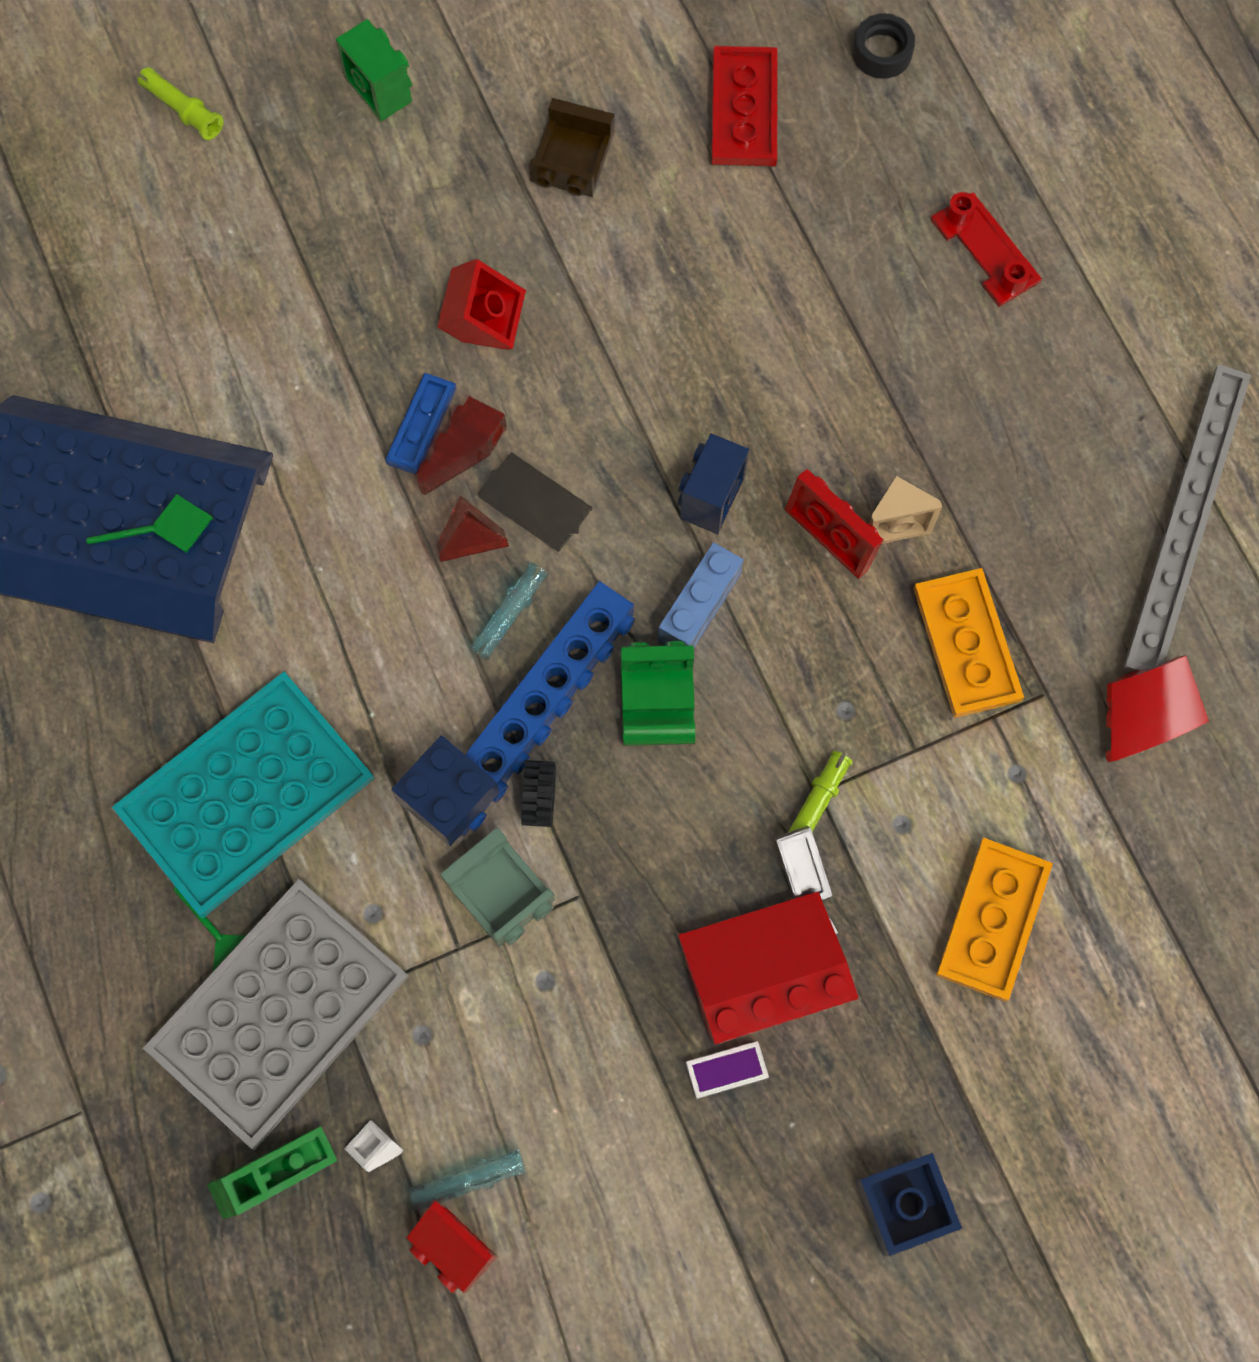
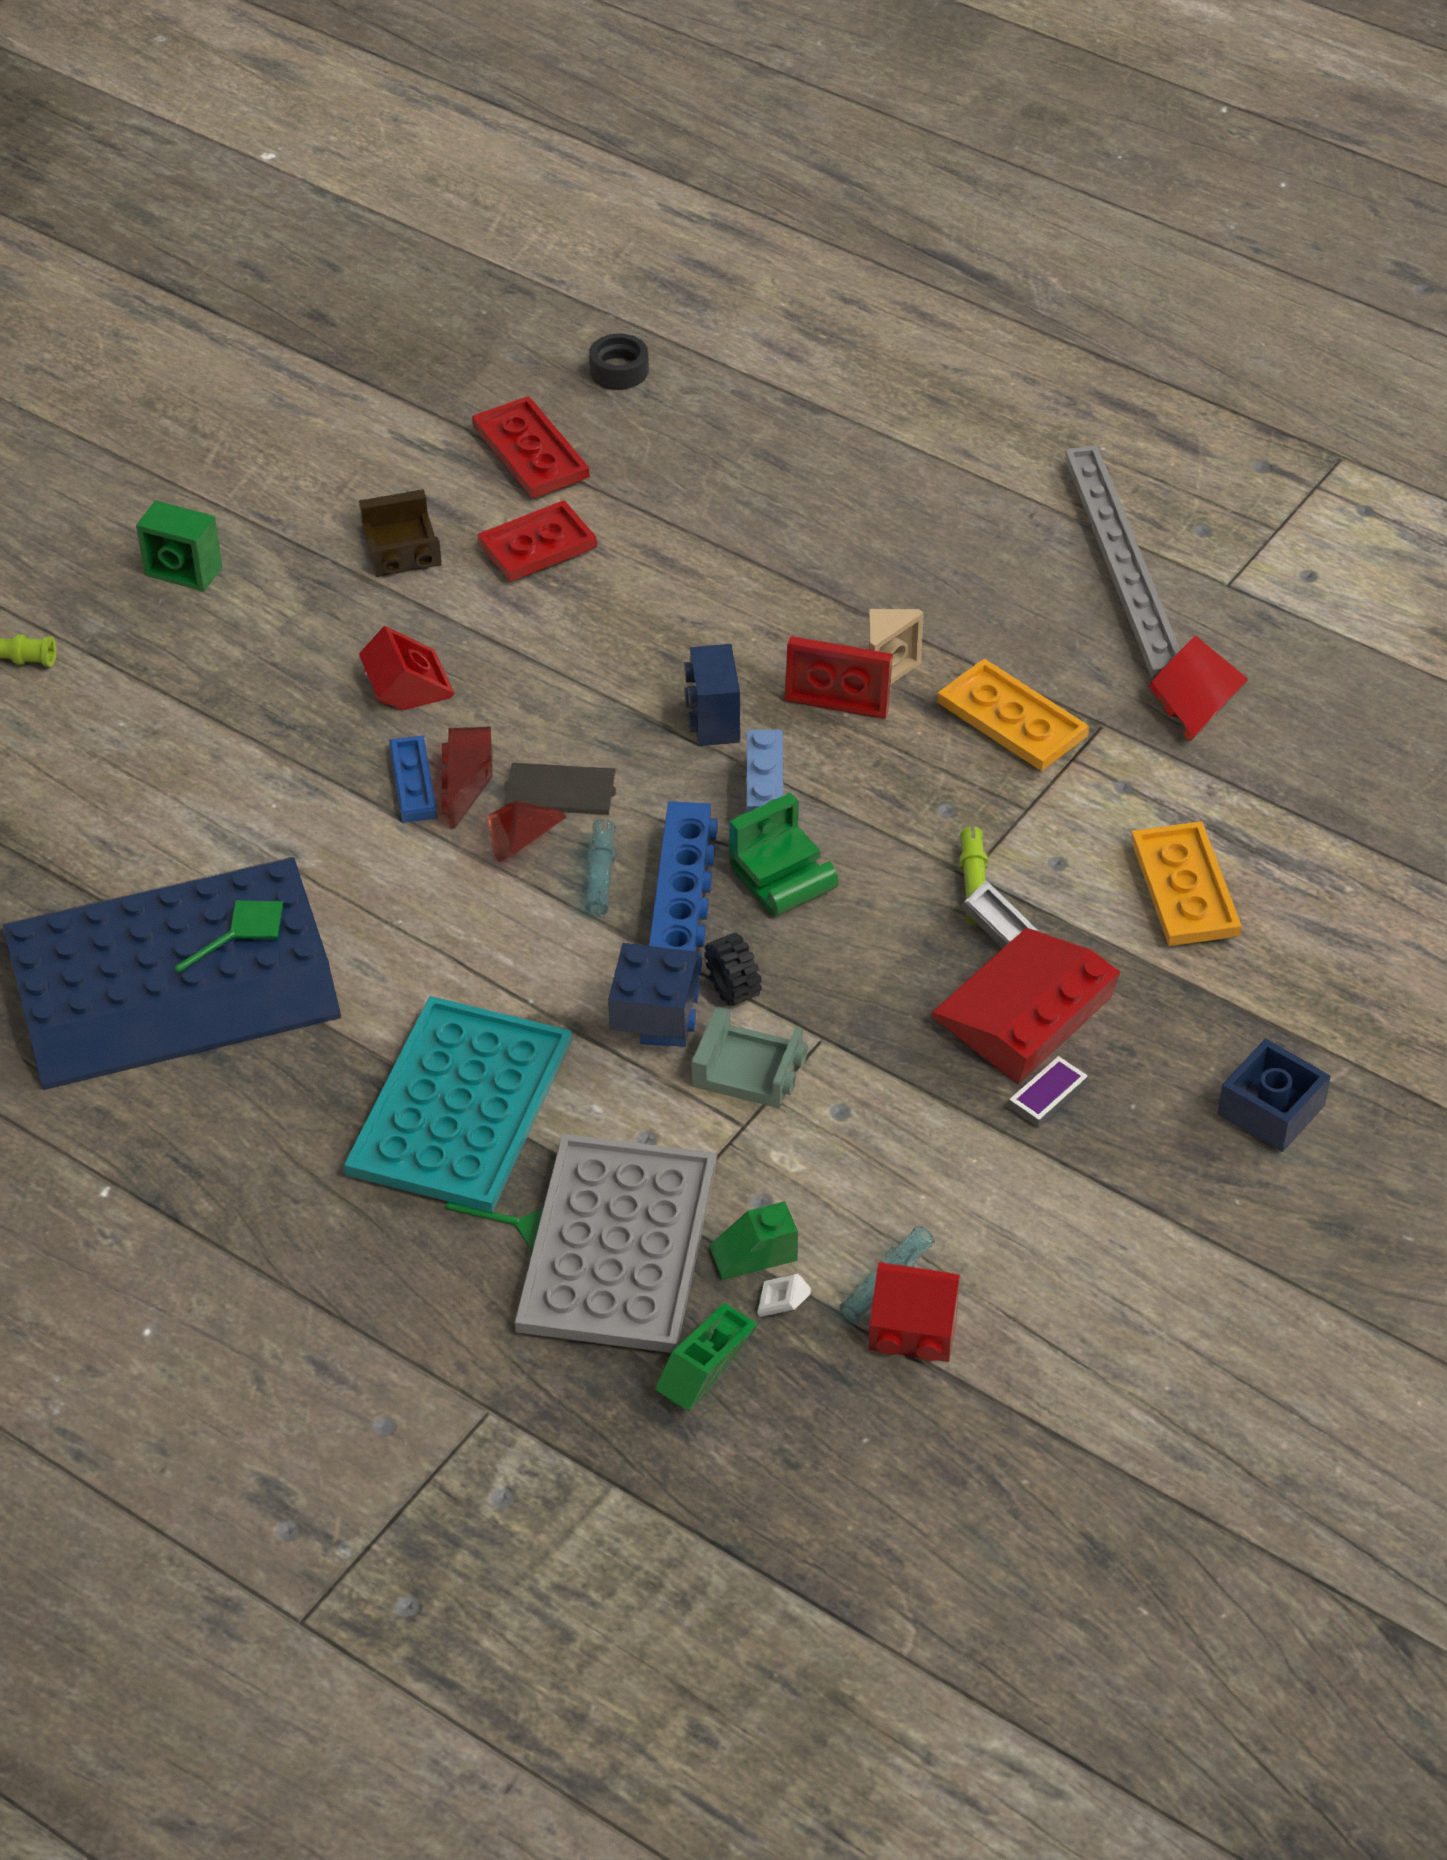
camera: 30 degrees left, 25 degrees down
(381, 1084) = (756, 1242): none -> green slope
(683, 217) = (537, 540): none -> red plate
(988, 245) = (843, 467): red brick -> none

